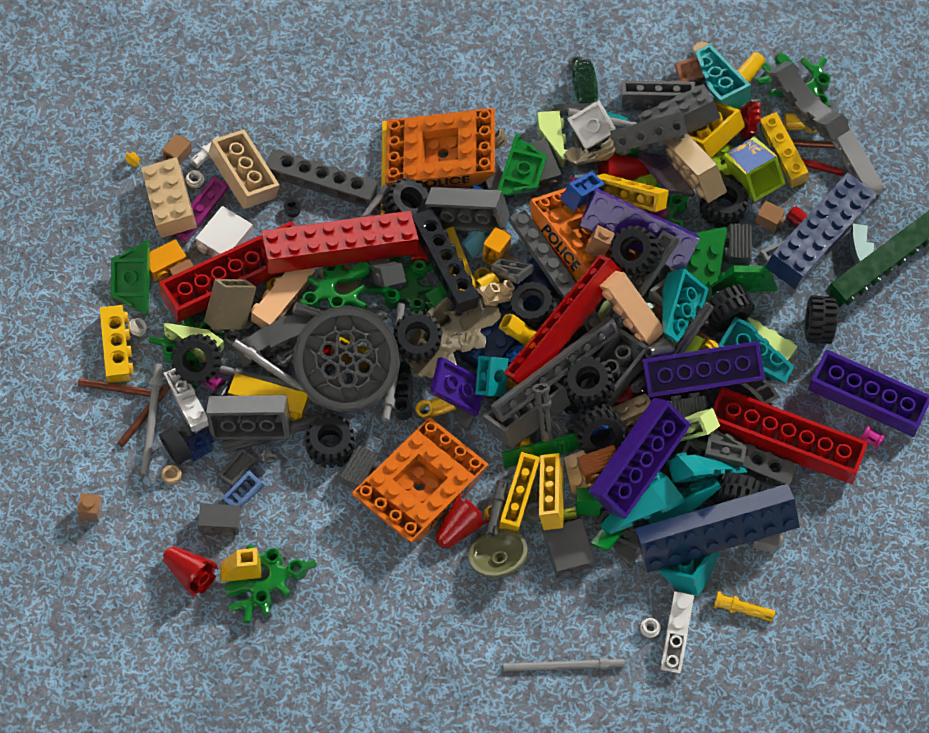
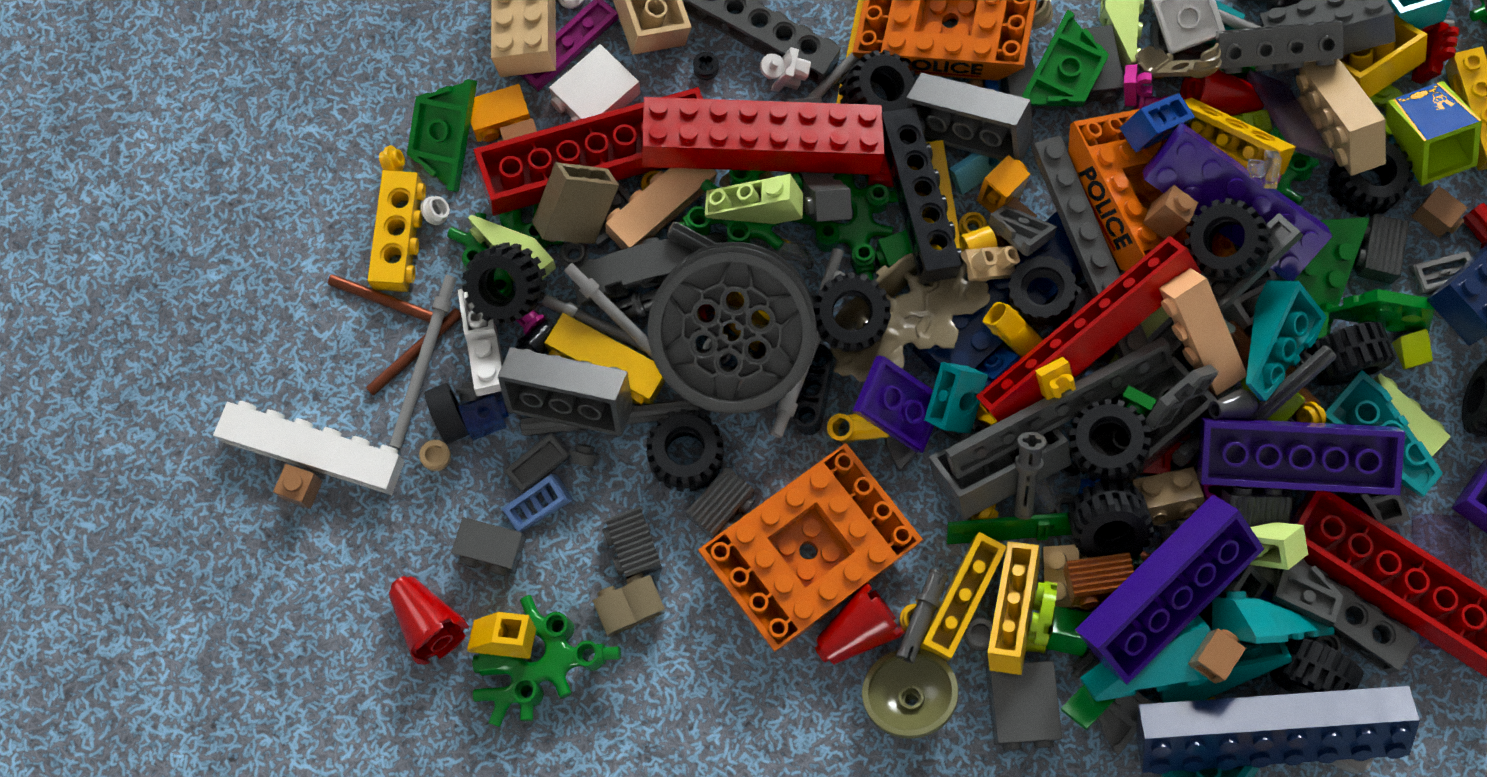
camera: 15 degrees right, 10 degrees up
(72, 482) = (309, 447): none -> white brick
(102, 300) = (391, 159): none -> yellow plate
(309, 502) = (632, 543): none -> dark grey brick
(314, 538) = (628, 605): none -> dark tan brick
(345, 201) = (787, 70): none -> white hips
(346, 281) = (758, 201): none -> yellowish green slope
(548, 350) = (1055, 378): none -> yellow tile
(566, 172) = (1133, 85): none -> dark pink tile
(569, 491) = (1043, 603): none -> lime plate
(604, 355) = (1140, 400): none -> green plate
(631, 340) = (1189, 387): none -> dark grey tile
(651, 205) = (1266, 170): none -> clear tile
(674, 489) = (1217, 655): none -> medium nougat brick
(769, 300) = (1413, 349): none -> neon yellow slope

